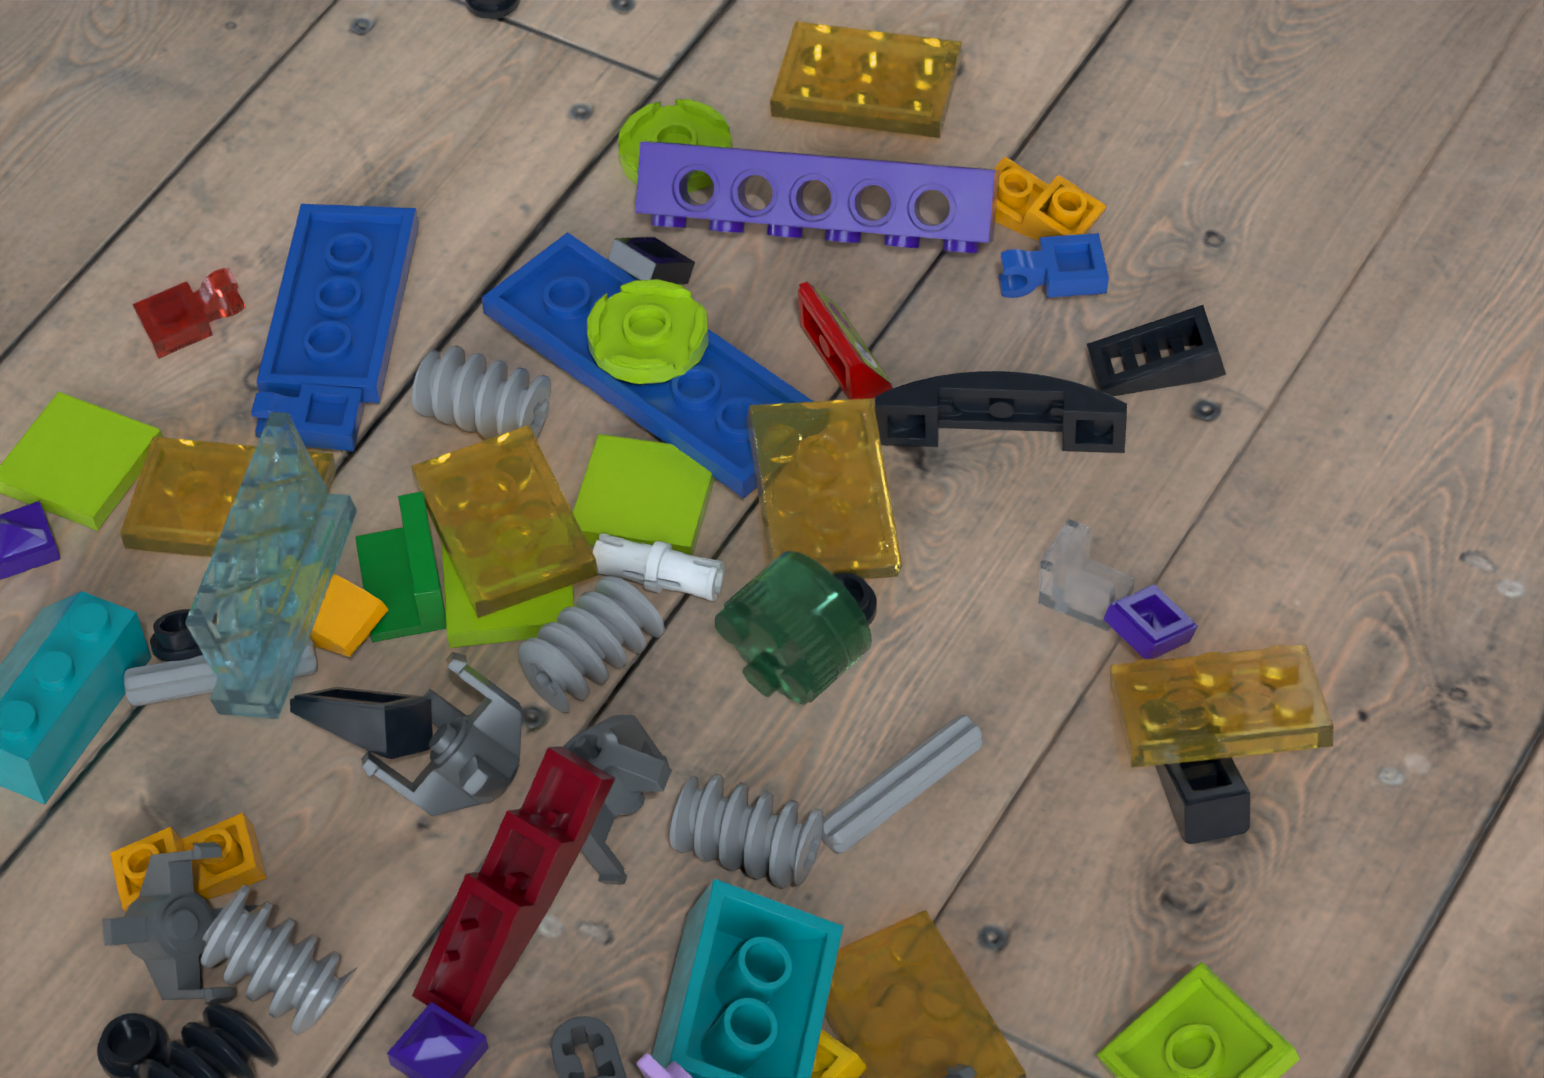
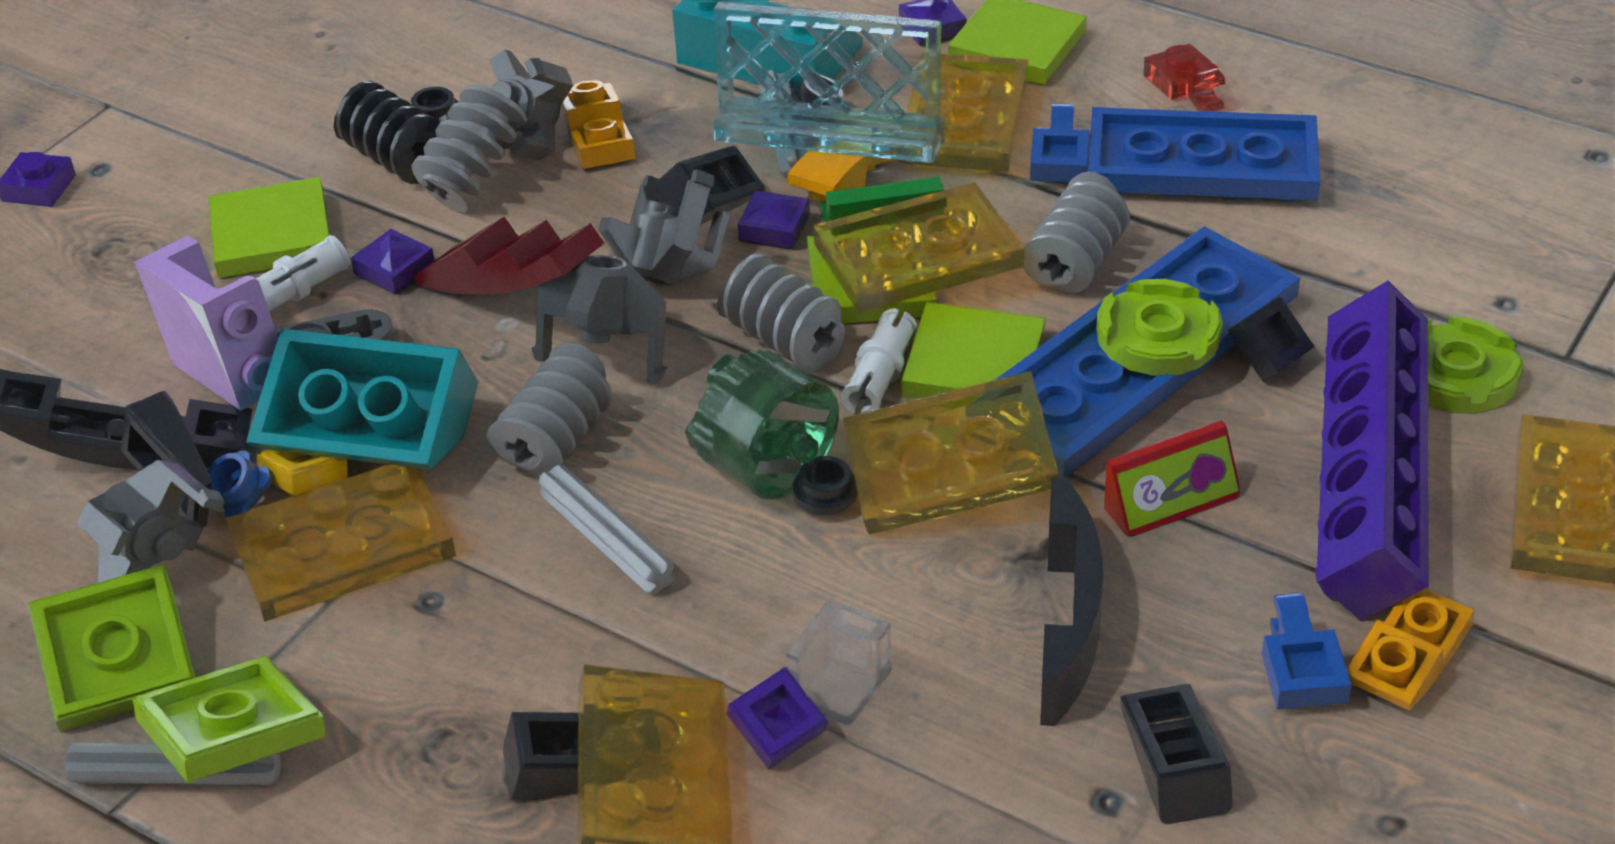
camera: 90 degrees right, 10 degrees down
(400, 667) = (773, 219): none -> dark purple tile

